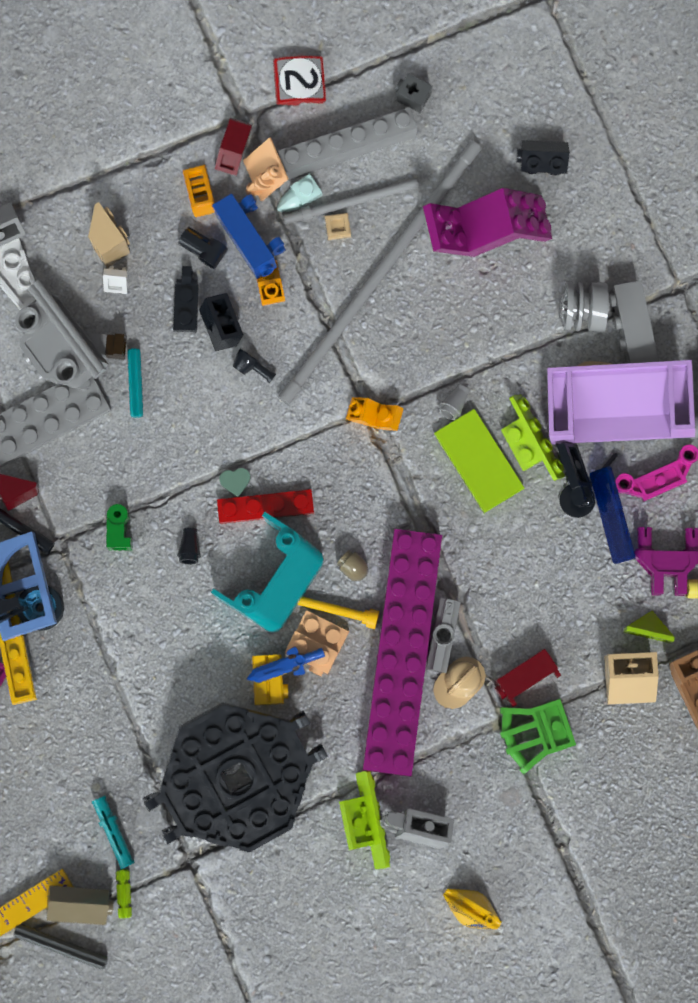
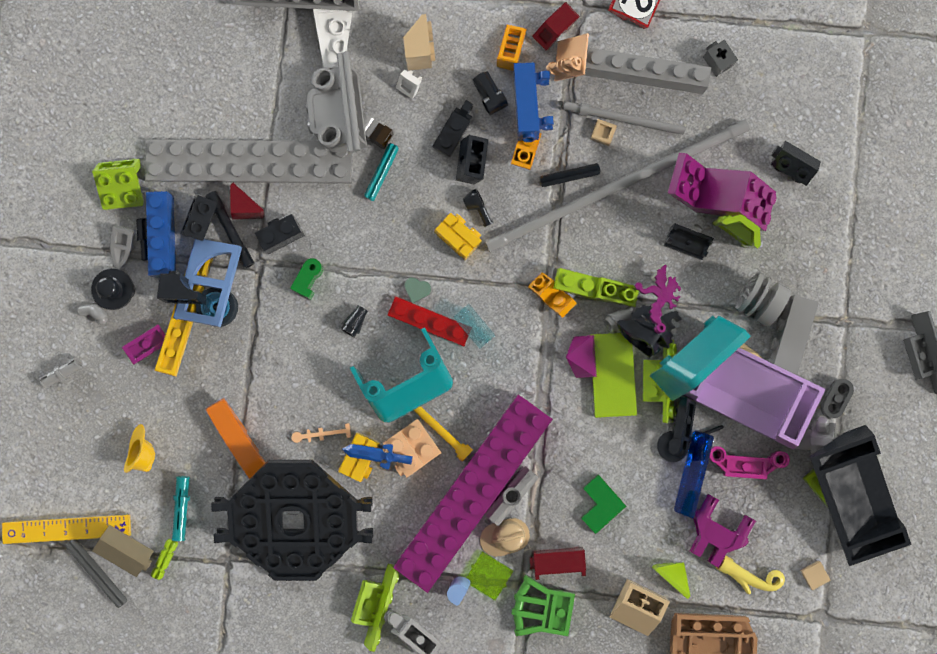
camera: 30 degrees right, 5 degrees up
(39, 796) = (140, 452): none -> yellow piece
(65, 498) = (279, 233): none -> black brick
(131, 728) = (235, 437): none -> orange slope
(193, 695) = (297, 436): none -> light nougat piece
(248, 405) = (458, 236): none -> yellow brick
(299, 195) = (587, 92): light aqua plate -> none
(313, 486) = (474, 326): none -> clear light blue hinge
(327, 286) = (570, 175): none -> black axle
(353, 566) = (472, 404): dark tan piece -> none
(415, 383) = (596, 288): none -> lime slope
(438, 459) = (582, 356): none -> magenta slope
(440, 759) = (458, 590): none -> light blue brick
(464, 730) = (489, 575): none -> clear neon green piece
(481, 289) = (688, 241): none -> black hinge
(483, 390) = (647, 323): none -> black helmet
(524, 249) = (741, 229): none -> lime piece
(544, 595) = (607, 504): none -> green tile
(551, 395) = (699, 357): none -> teal windscreen

